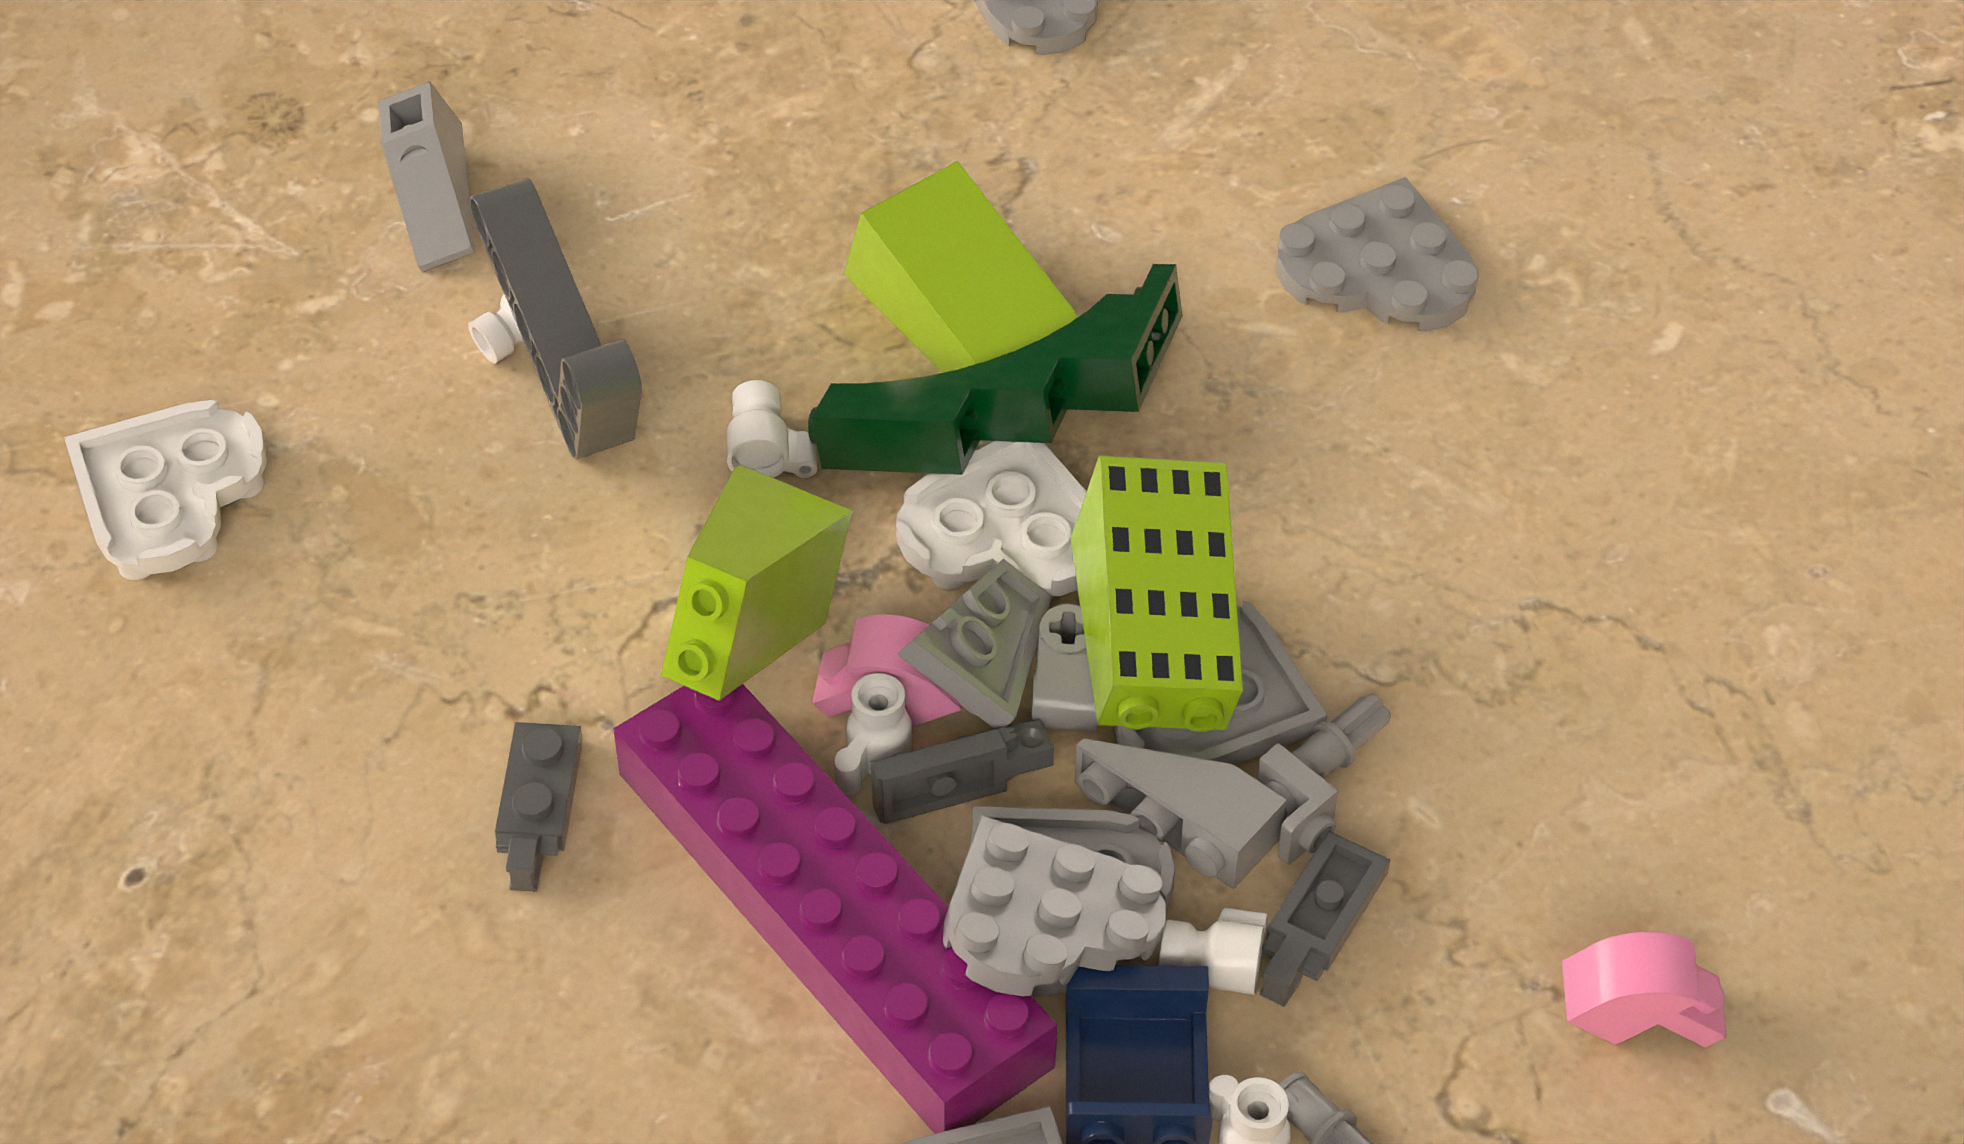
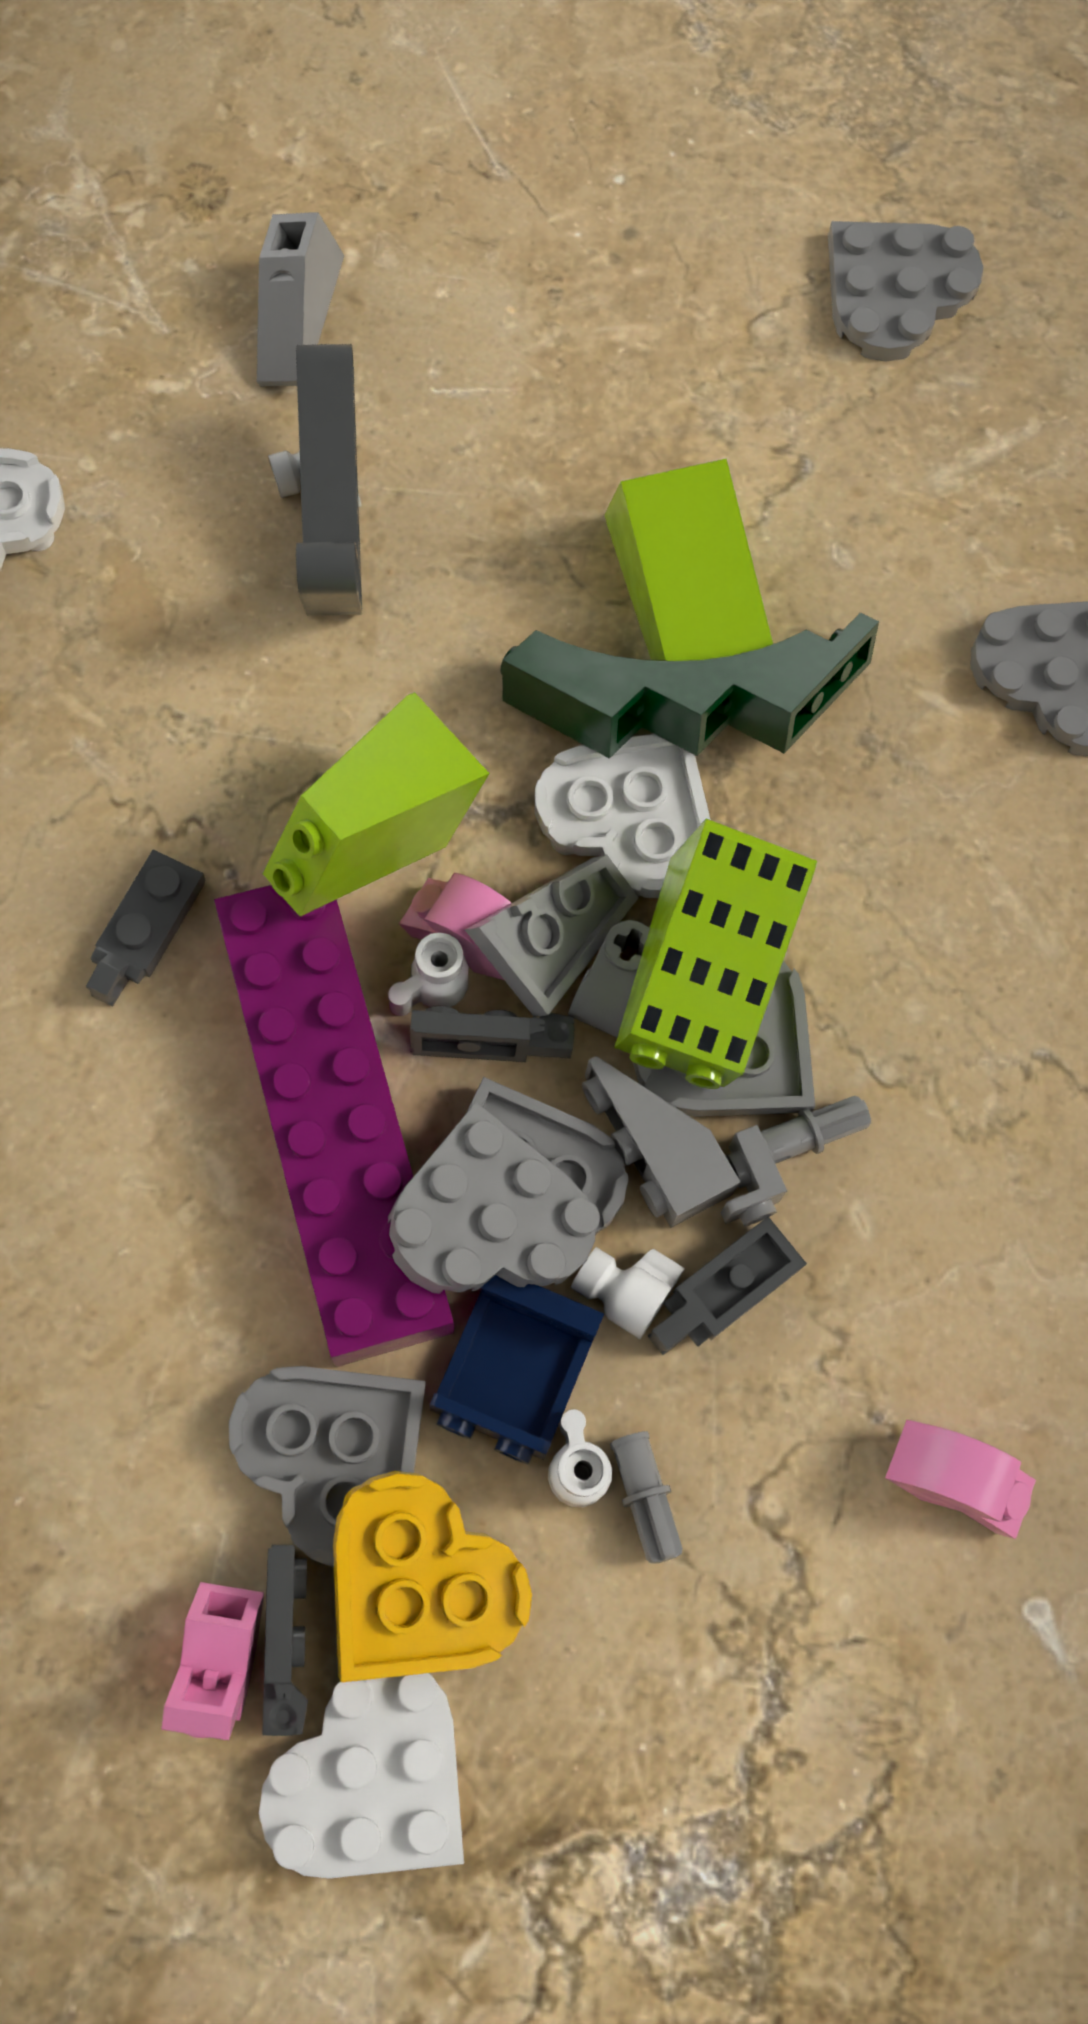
camera: 15 degrees right, 20 degrees up
(760, 437) = (459, 656): white piece -> none

